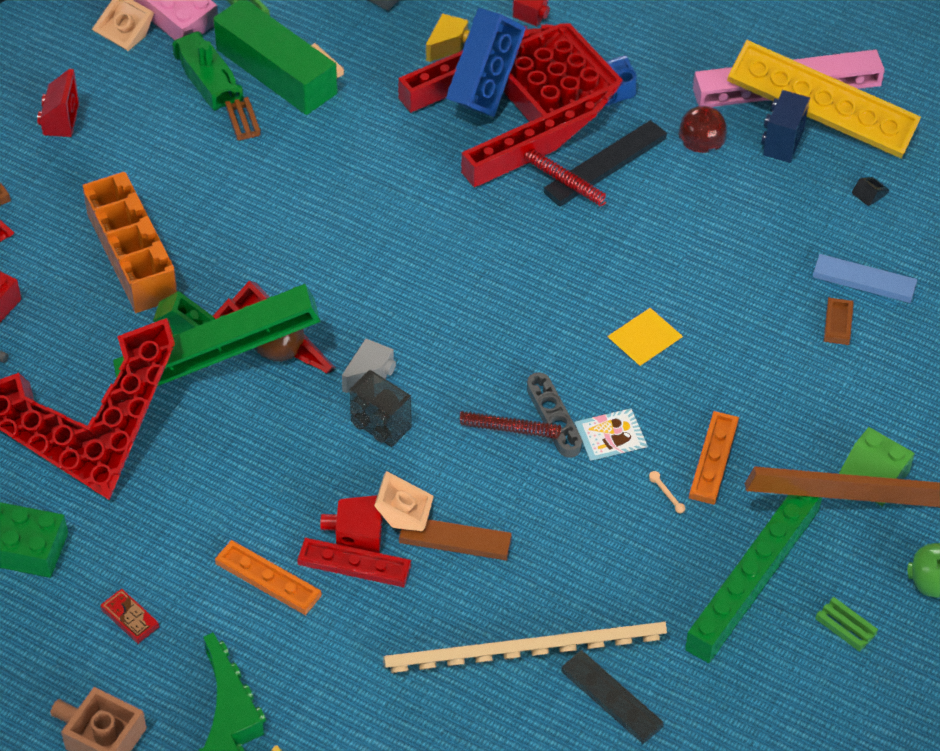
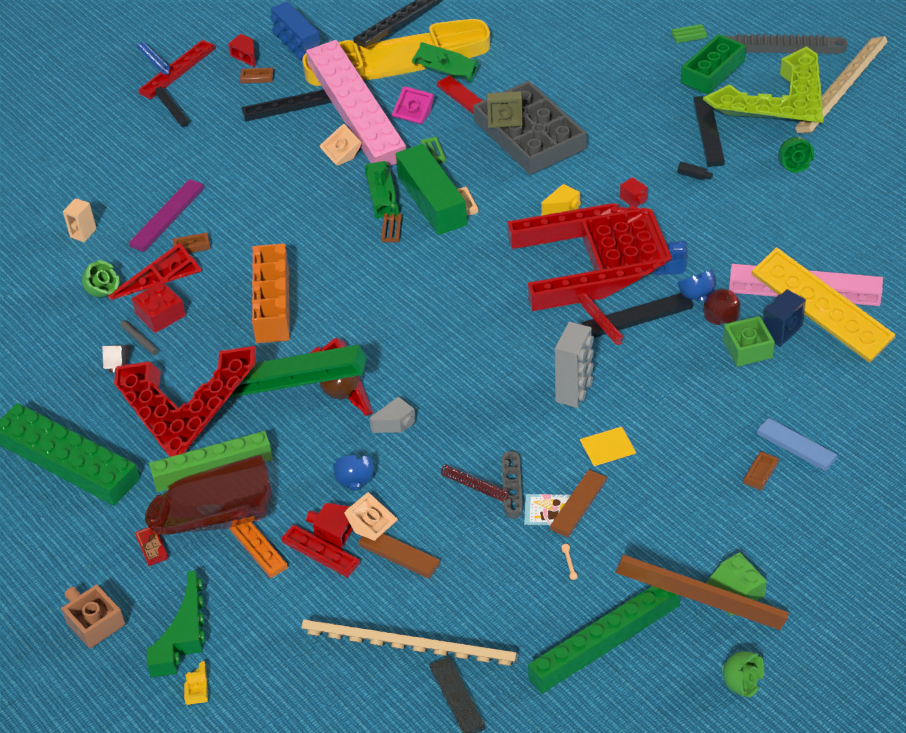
camera: 25 degrees right, 5 degrees down
(59, 106) = (270, 192): red slope -> none
(157, 485) = (177, 467): none -> bright green brick
(181, 313) = (280, 347): green slope -> none
(186, 534) = (213, 499): none -> clear red windscreen
(353, 450) = (353, 472): none -> blue cylinder
(380, 408) = (384, 447): clear smoke brick -> none
(486, 62) = (571, 222): blue brick -> none
(575, 244) = (573, 364): none -> light grey brick
(644, 417) = (578, 503): none -> dark orange tile
(666, 109) = (697, 286): none -> blue cylinder
(714, 458) = (616, 546): orange tile -> none
(756, 164) = (748, 341): none -> bright green brick
(848, 620) = (650, 680): bright green tile -> none
(869, 190) = (832, 380): black slope -> none

